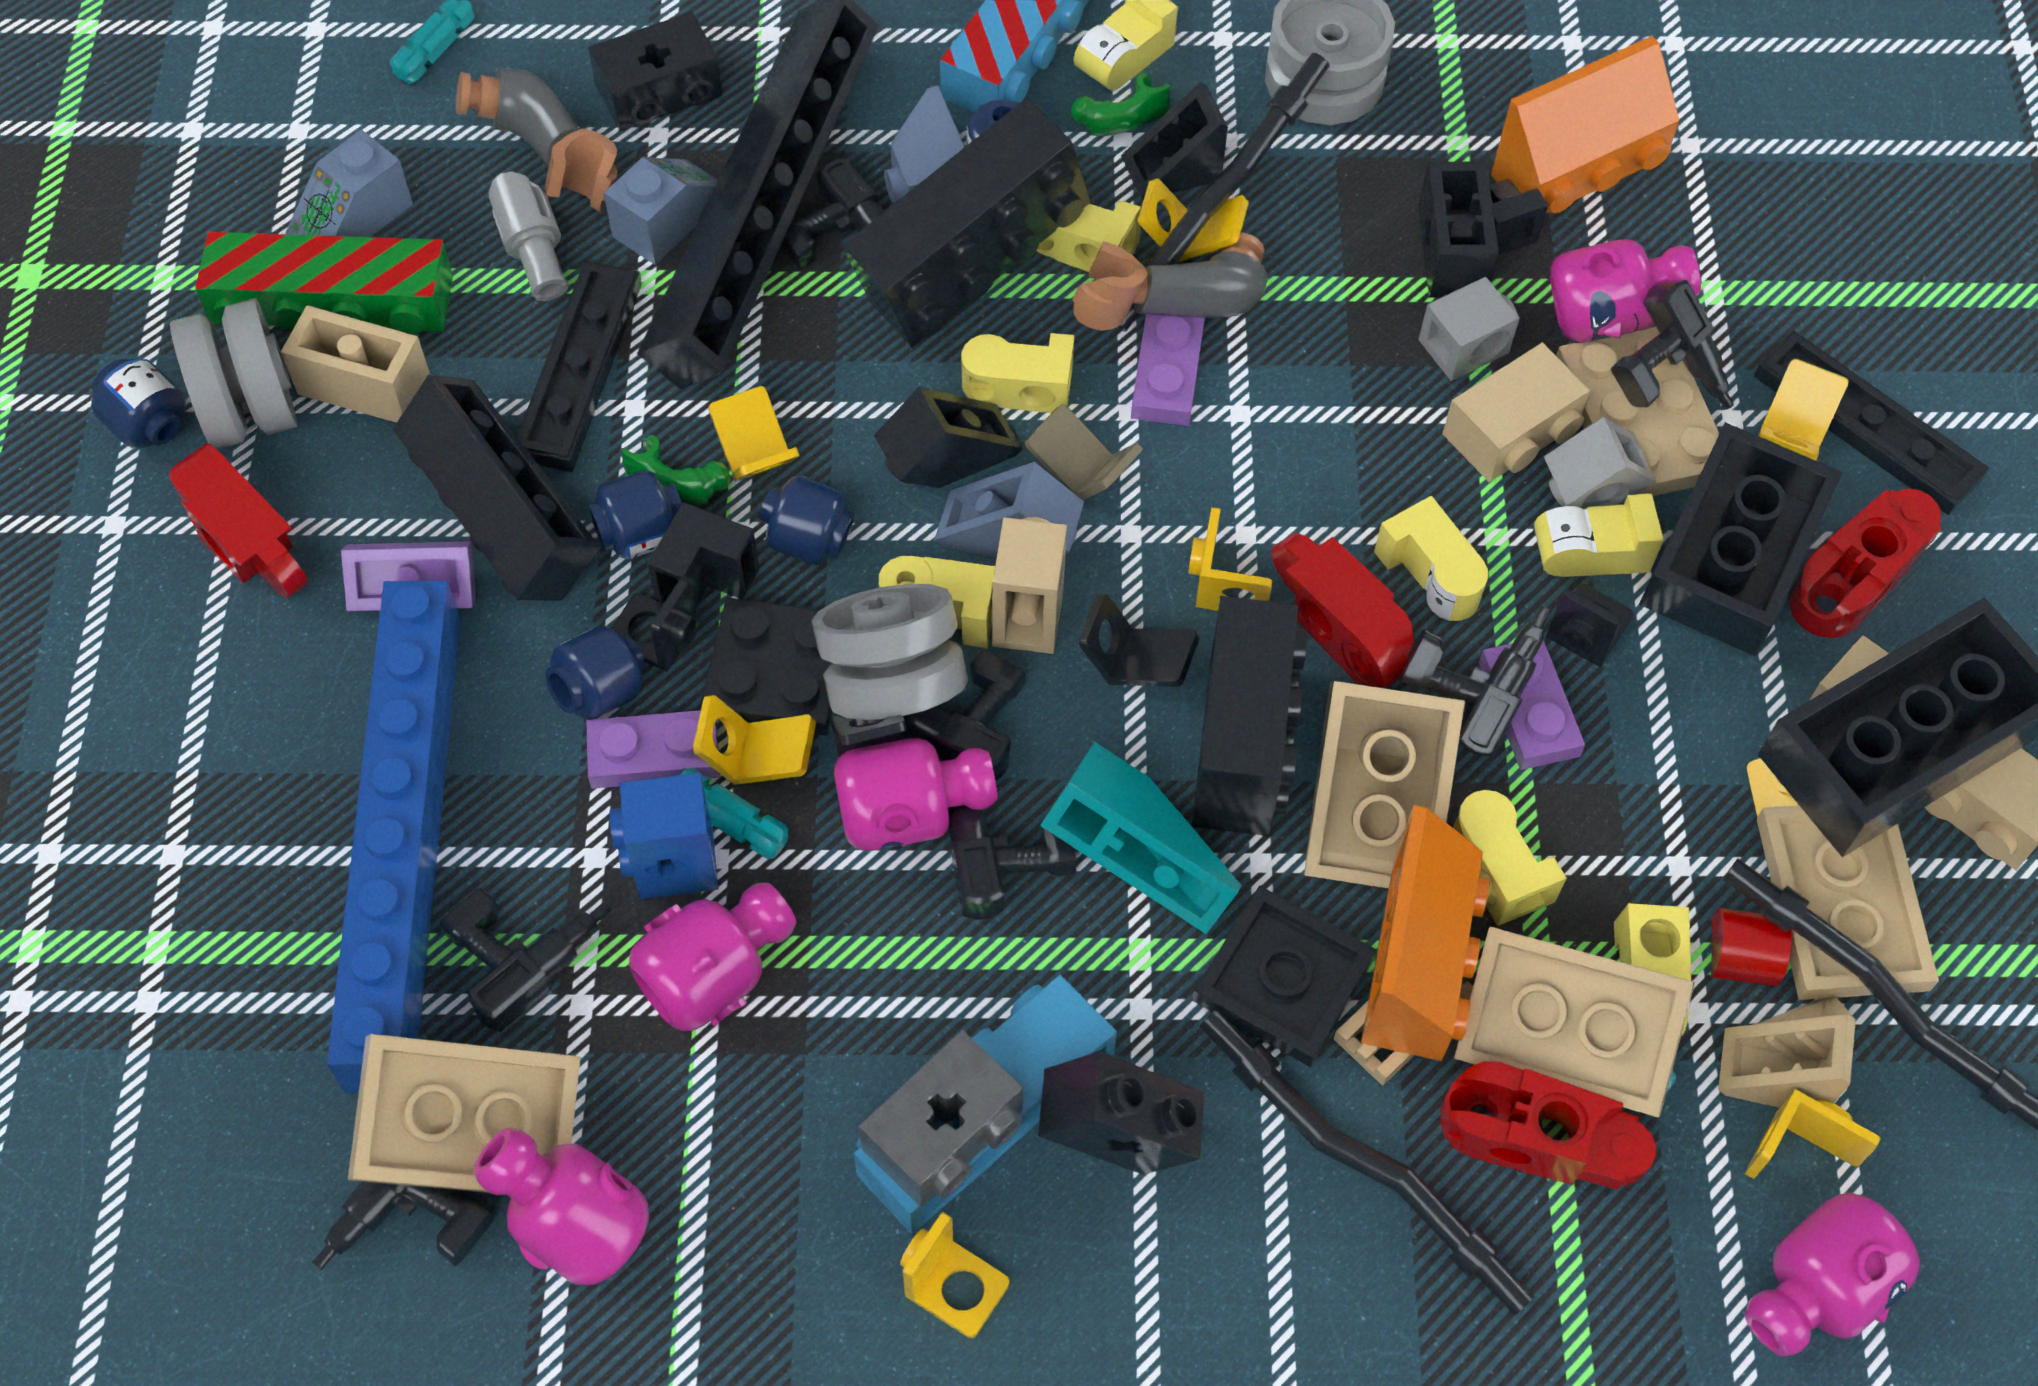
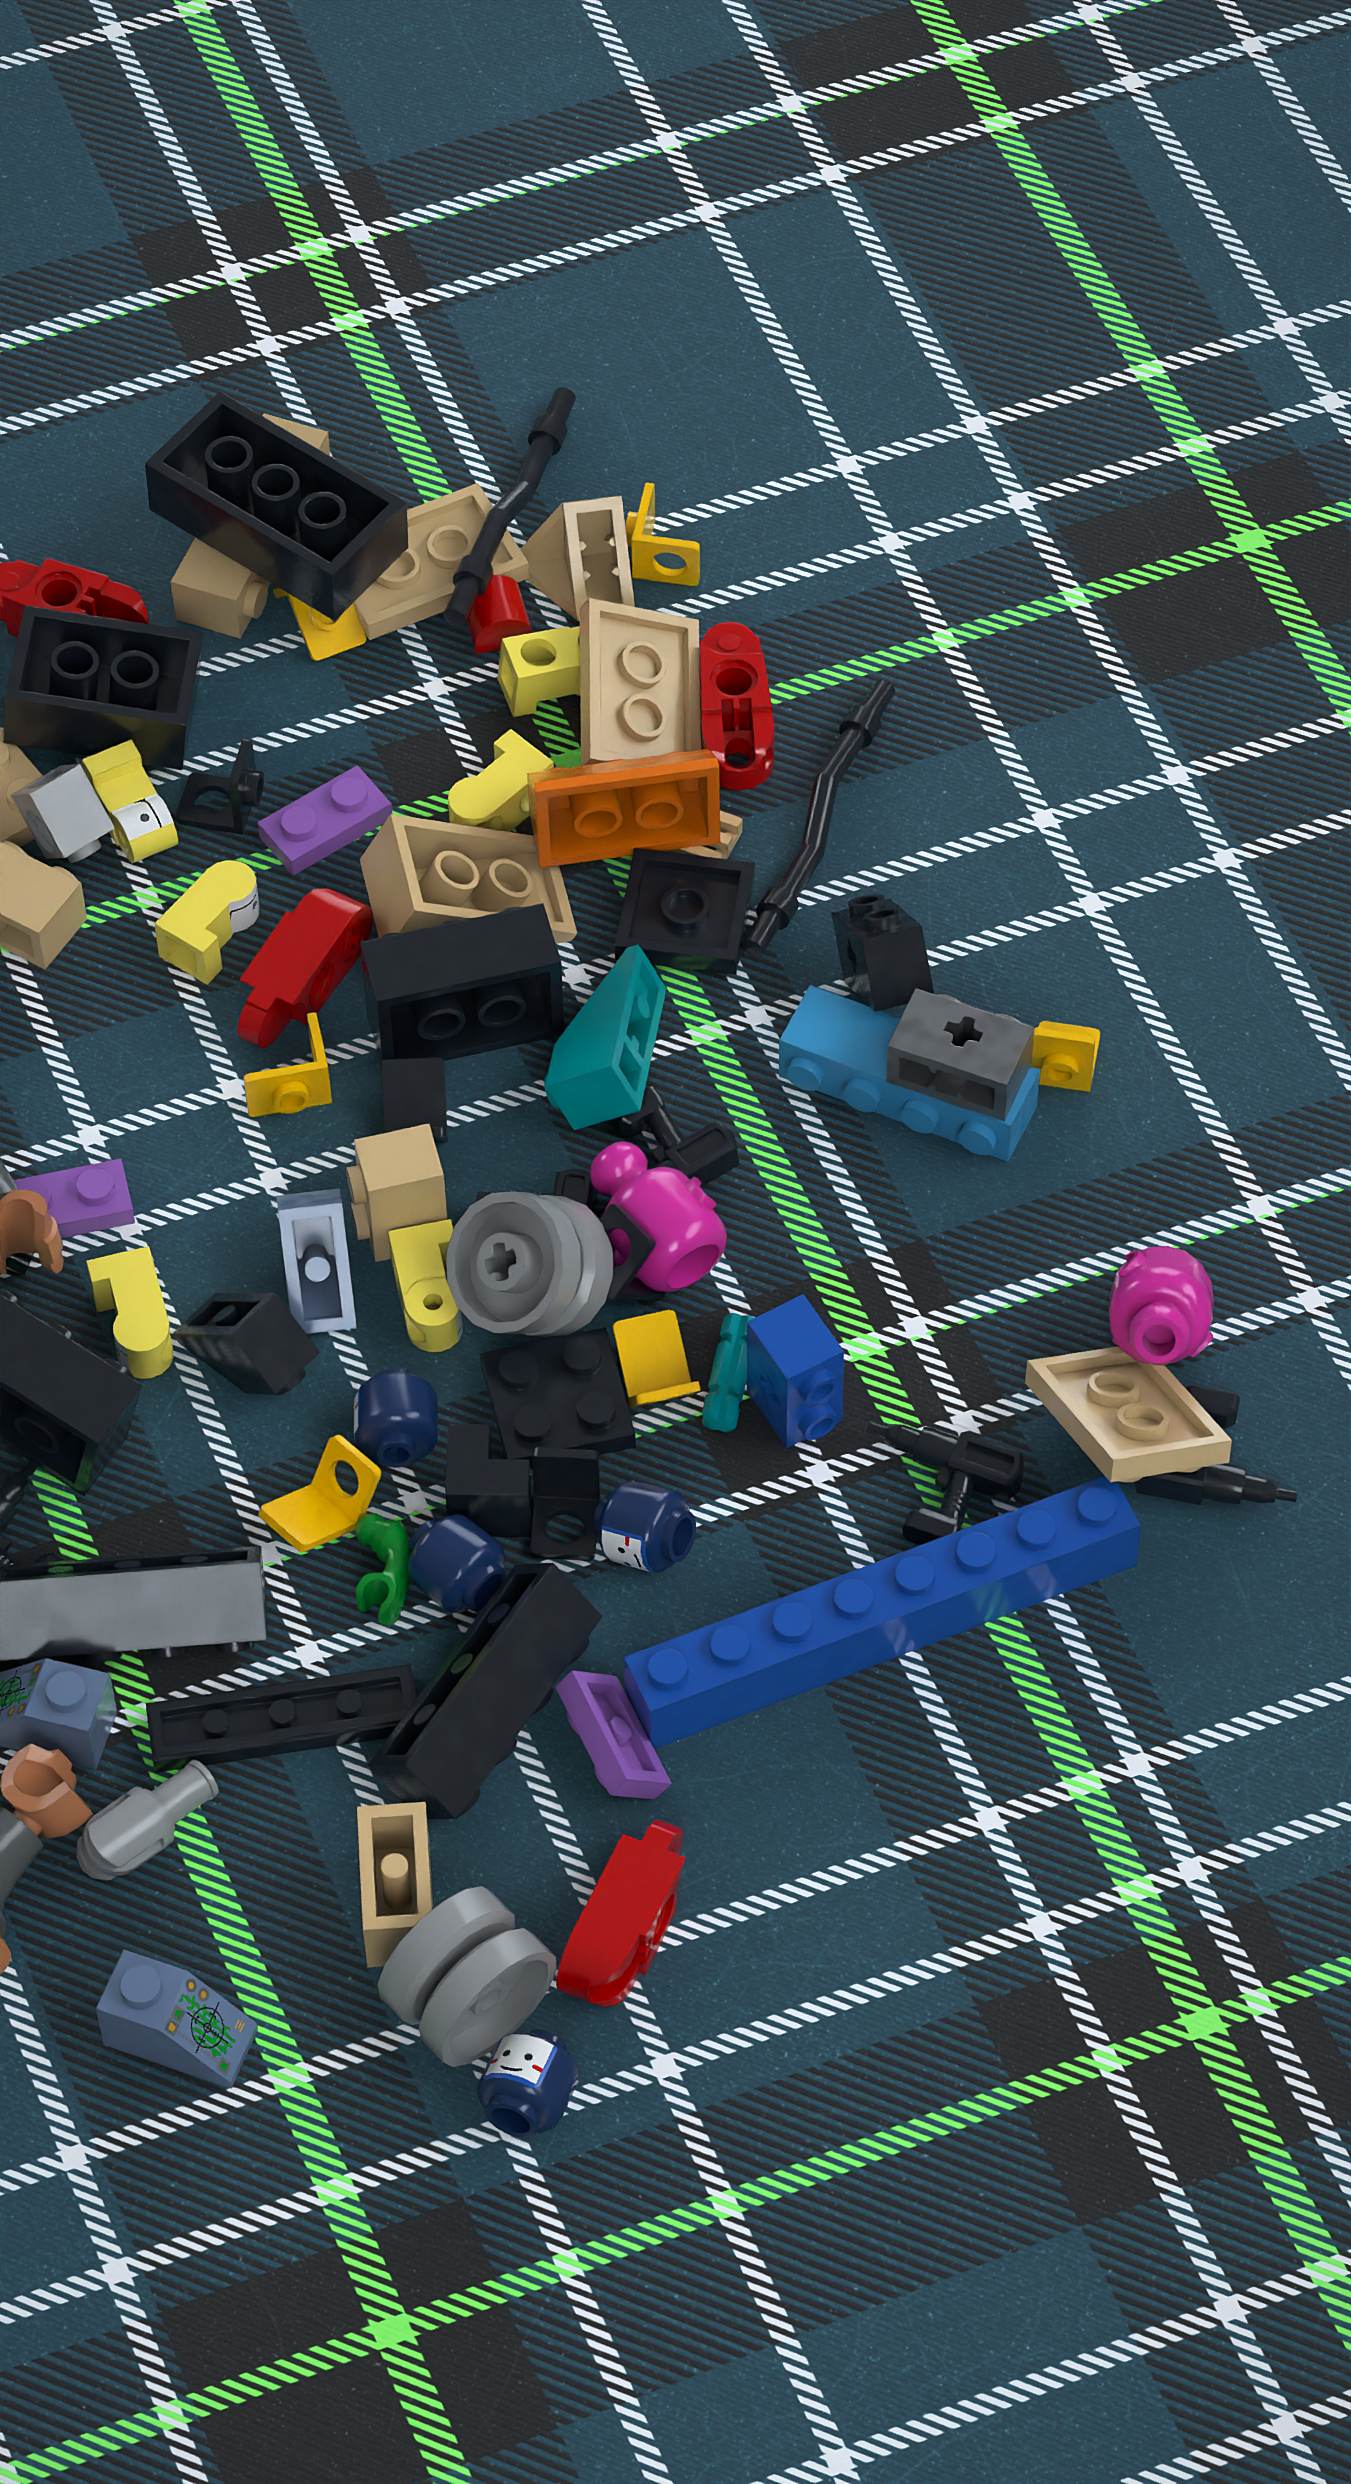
camera: 110 degrees left, 5 degrees down
(369, 279) = (293, 1988): green brick -> none
(643, 748) = (693, 1461): medium lavender plate -> none
(706, 958) = (884, 1313): dark pink piece -> none
(1076, 454) = (215, 1231): dark tan bracket -> none
(1490, 696) = (351, 827): black piece -> none
(1834, 1274) = (768, 495): dark pink piece -> none

